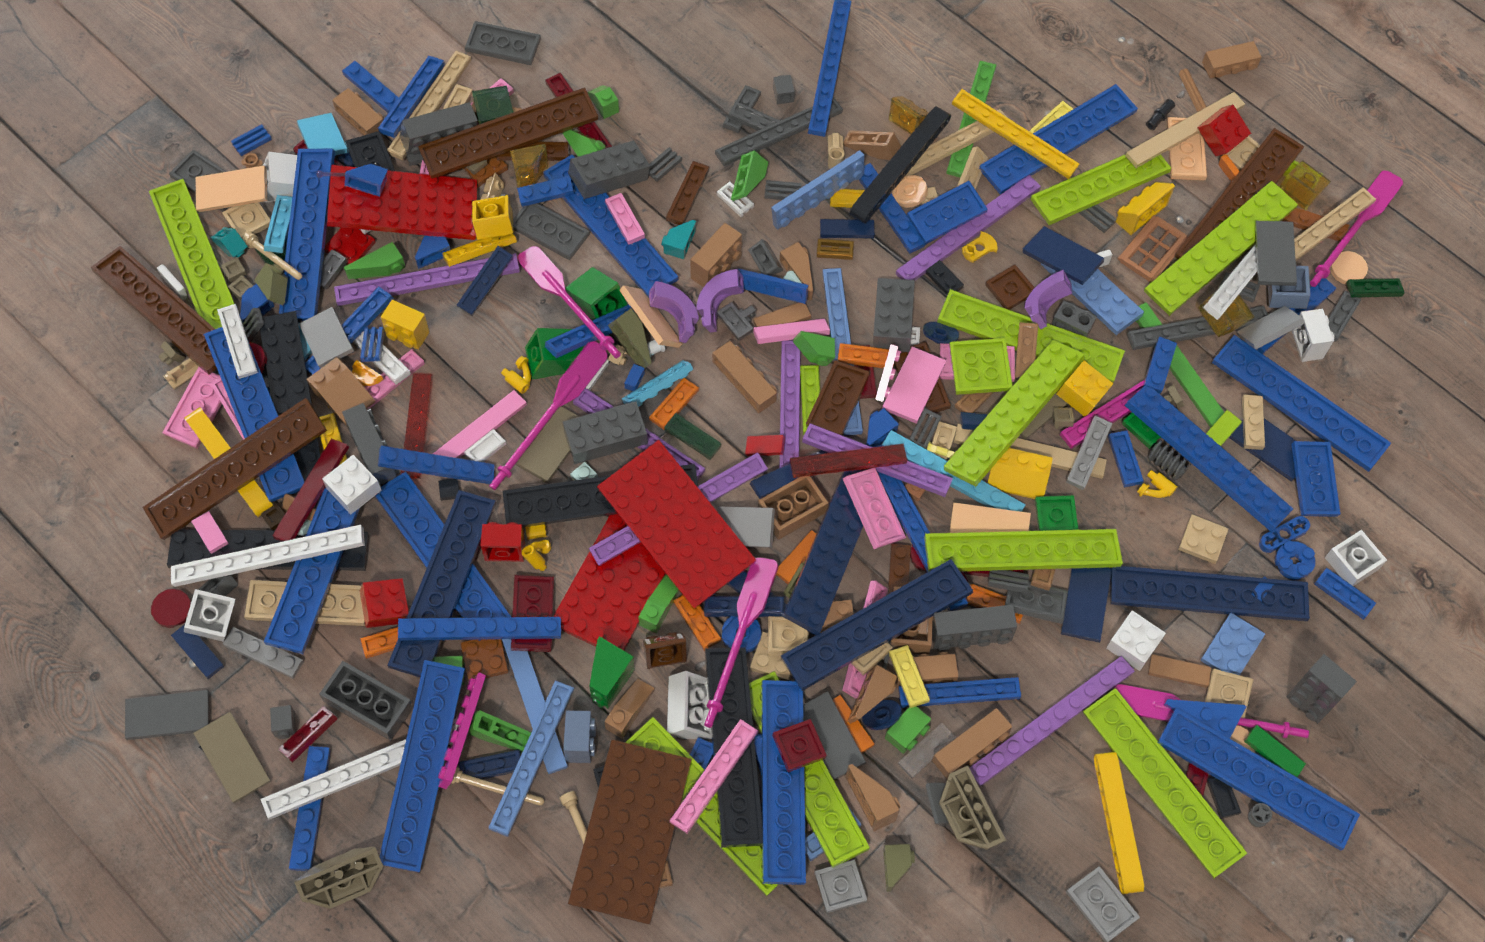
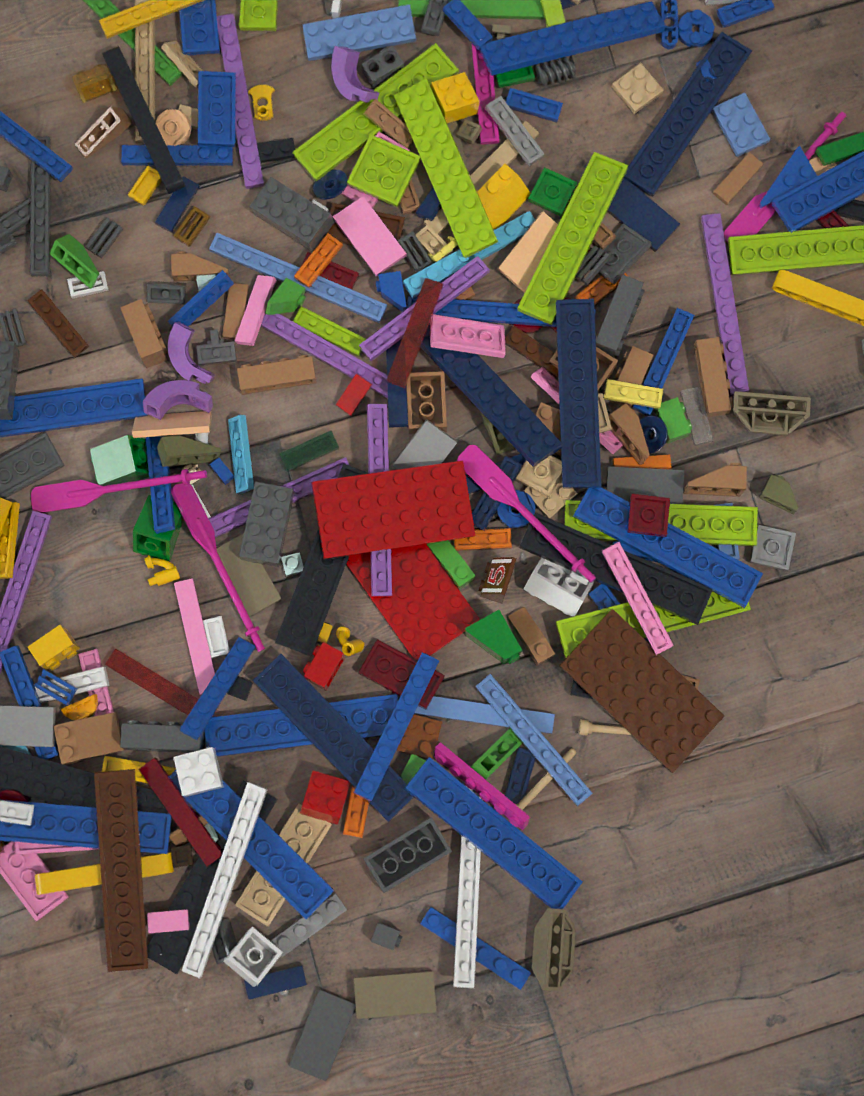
camera: 60 degrees left, 15 degrees up
(170, 608) = (221, 988): dark red tile -> none
(307, 734) = (408, 920): dark red tile -> none
(484, 280) = (46, 552): dark blue tile -> none
(578, 736) = (539, 691): sand blue brick -> none
(624, 218) = (56, 393): bright pink plate -> none
(674, 402) = (266, 450): orange tile -> none
(679, 239) = (103, 357): teal slope -> none
(790, 565) = (473, 422): orange tile -> none
(818, 190) = (130, 200): medium blue plate -> none
(835, 149) = (91, 168): tan piece -> none
(838, 397) = (347, 307): reddish brown plate -> none
(888, 372) = (348, 251): plate -> none
(934, 793) = (738, 429): dark grey slope -> none
(1010, 287) = (319, 100): reddish brown plate -> none
(1063, 254) = (317, 37): dark blue tile -> none
(1136, 640) = (697, 196): white brick -> none
(1165, 486) = (575, 88): yellow plant -> none
(1229, 689) = (775, 151): tan tile -> none
(1321, 689) = (823, 80): dark grey brick -> none

